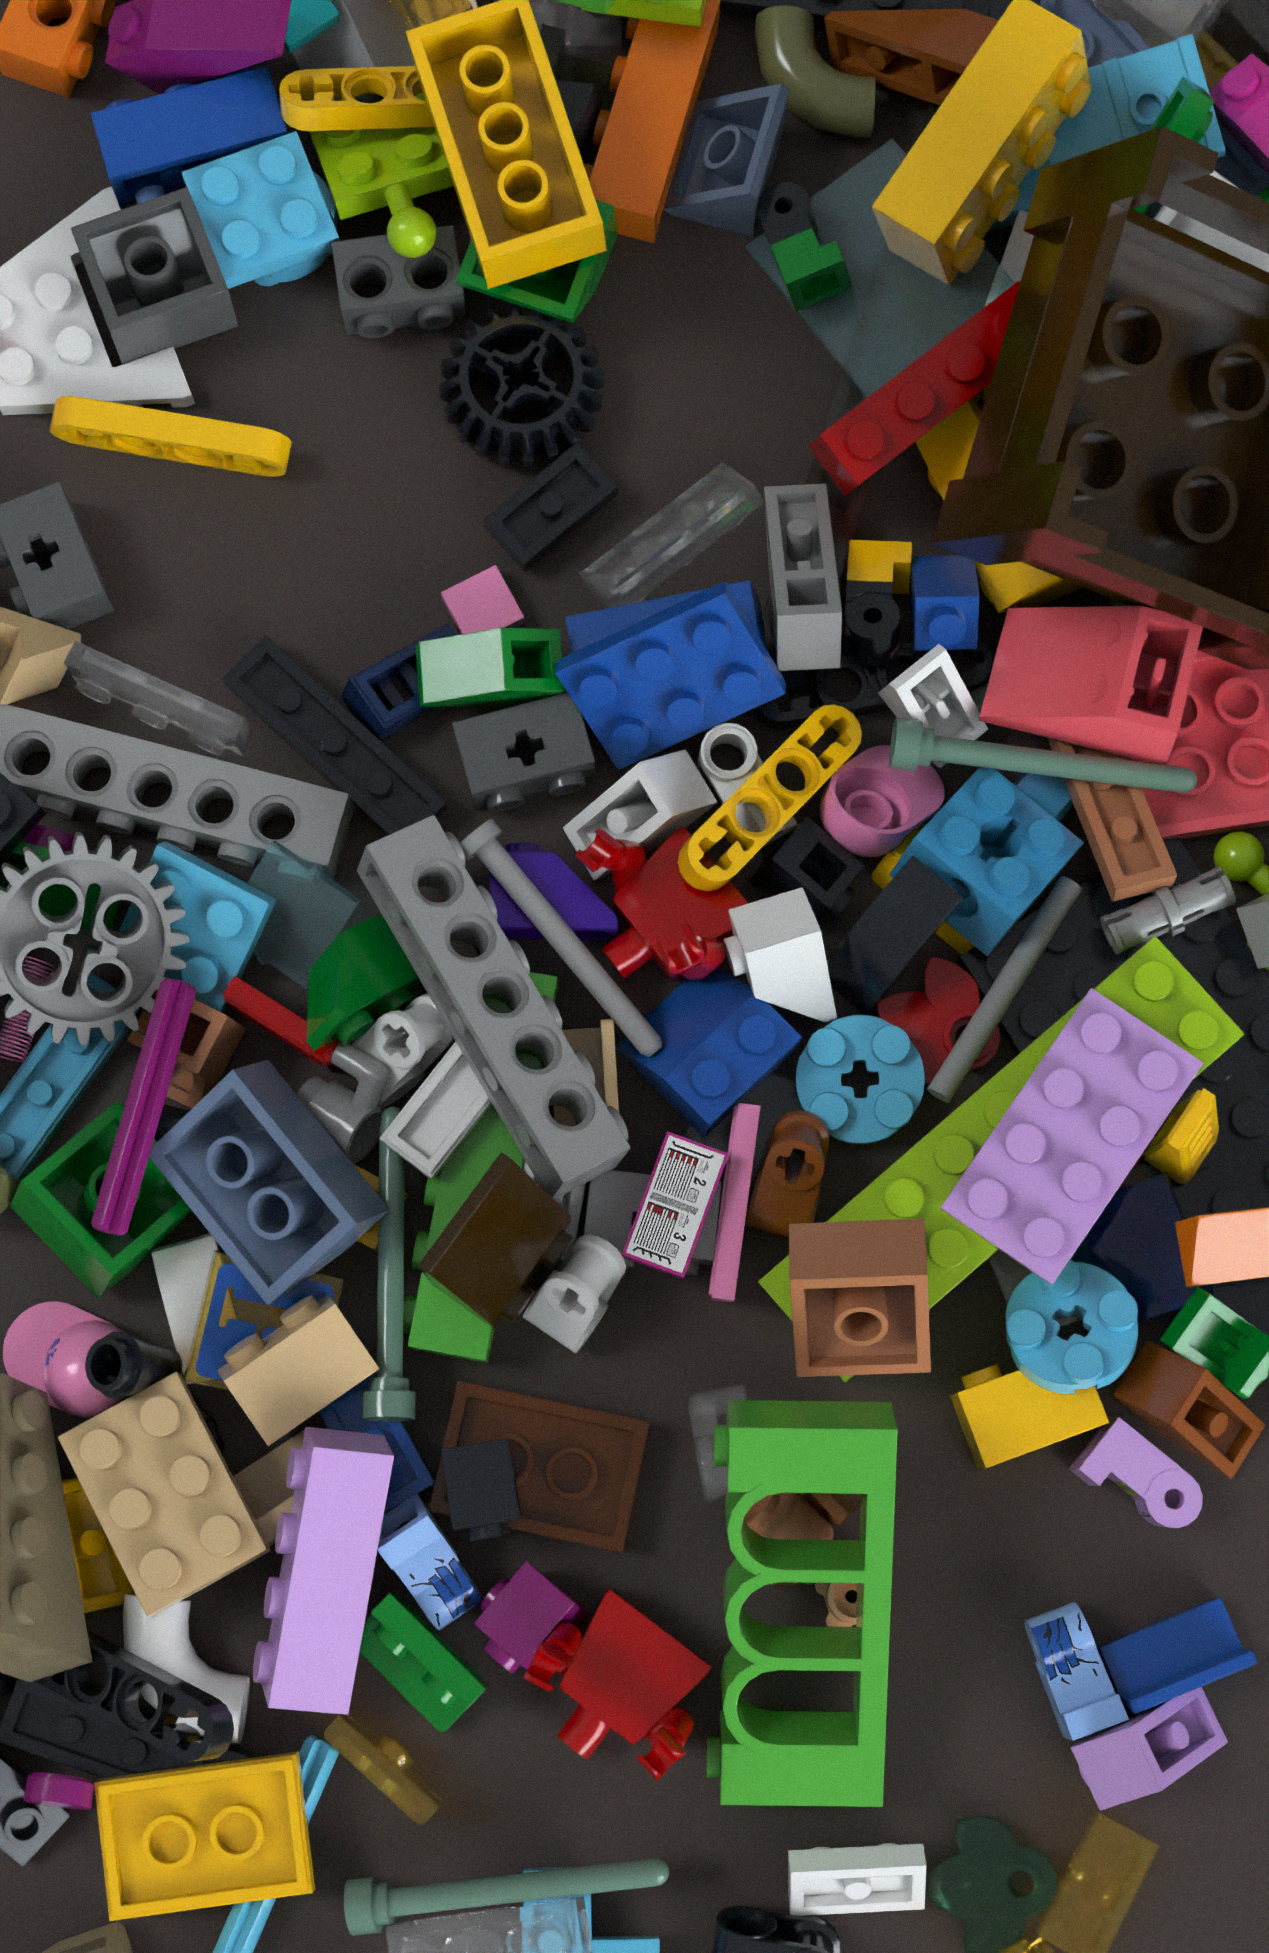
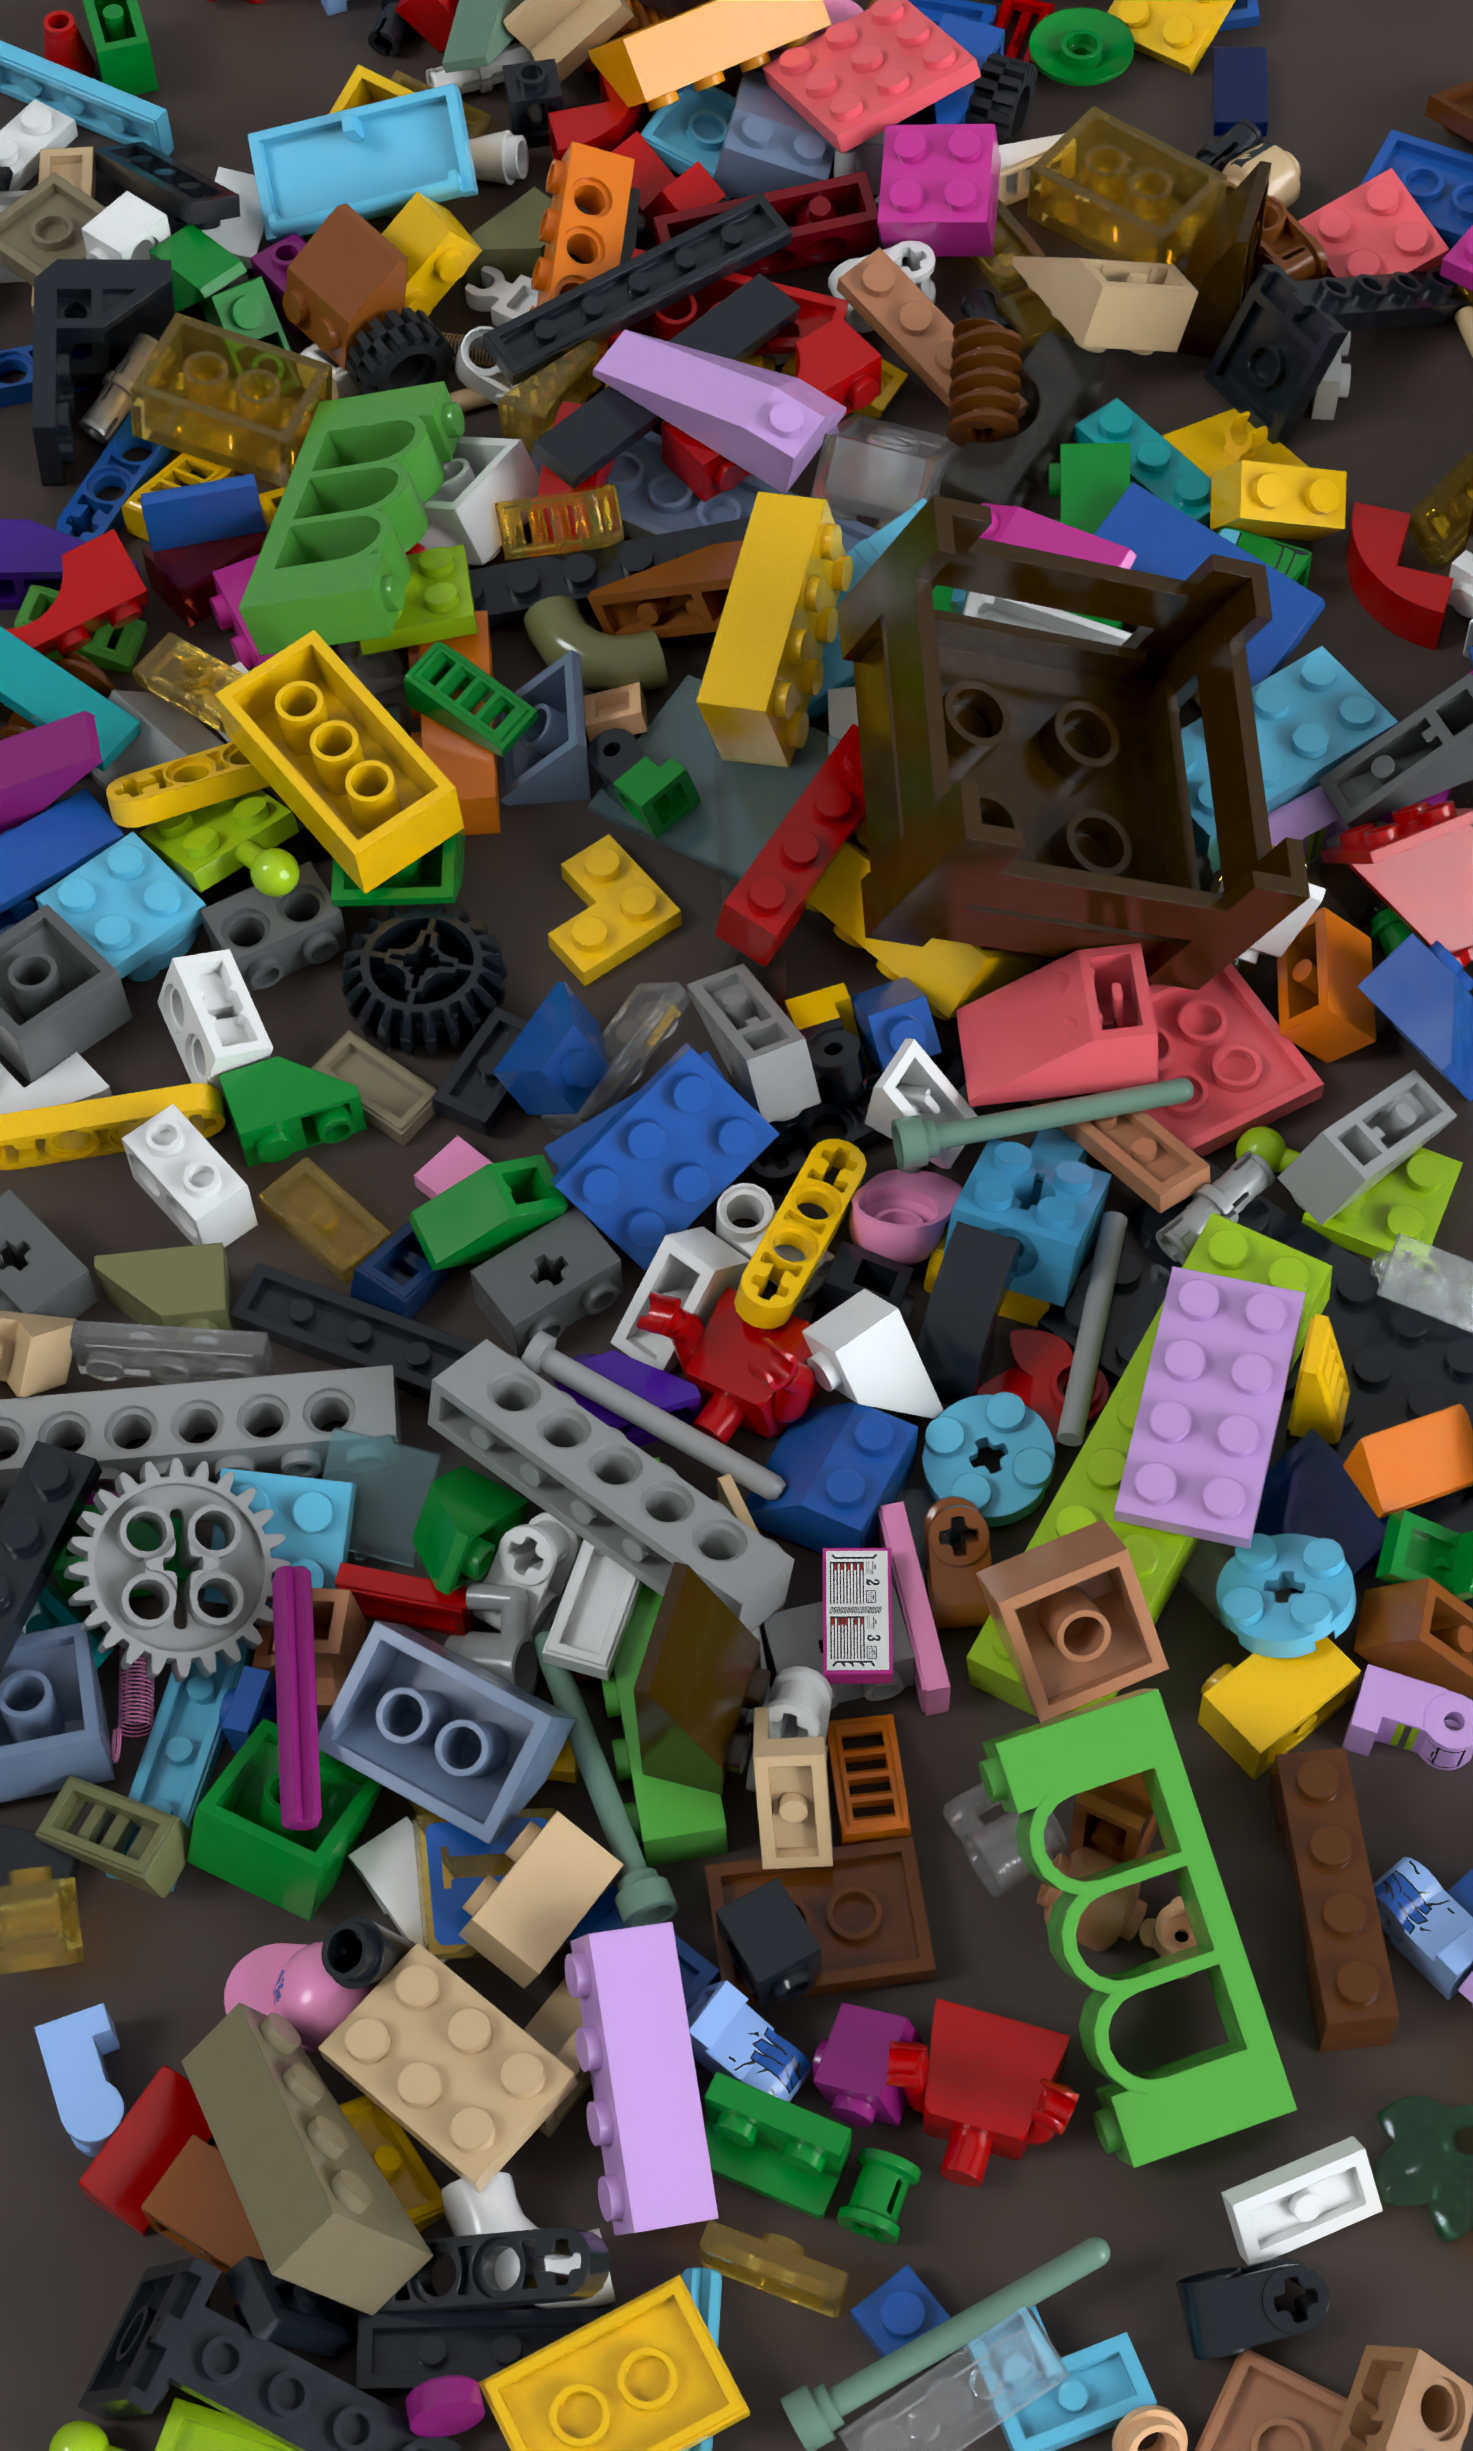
camera: 15 degrees left, 20 degrees down
(107, 1080) = (247, 1705): none -> blue plate
(183, 637) = (170, 1285): none -> olive slope
(230, 526) = (189, 1179): none -> white brick
(306, 368) = (212, 1016): none -> white brick
(343, 608) = (323, 1218): none -> clear yellow plate
(344, 479) = (288, 1108): none -> green slope
(438, 482) = (389, 1093): none -> dark tan tile
(477, 1844) = (897, 2312): none -> blue plate
(496, 1735) = (878, 2195): none -> green bush
(546, 1363) = (791, 1798): none -> tan panel
(615, 519) = (555, 1057): none -> blue slope
(618, 1399) = (874, 1827): none -> orange slope
(635, 59) = (441, 674): none -> green slope
(737, 381) = (623, 912): none -> yellow plate
(807, 155) = (616, 708): none -> light nougat plate
(998, 1622) = (1343, 1935): none -> reddish brown arch

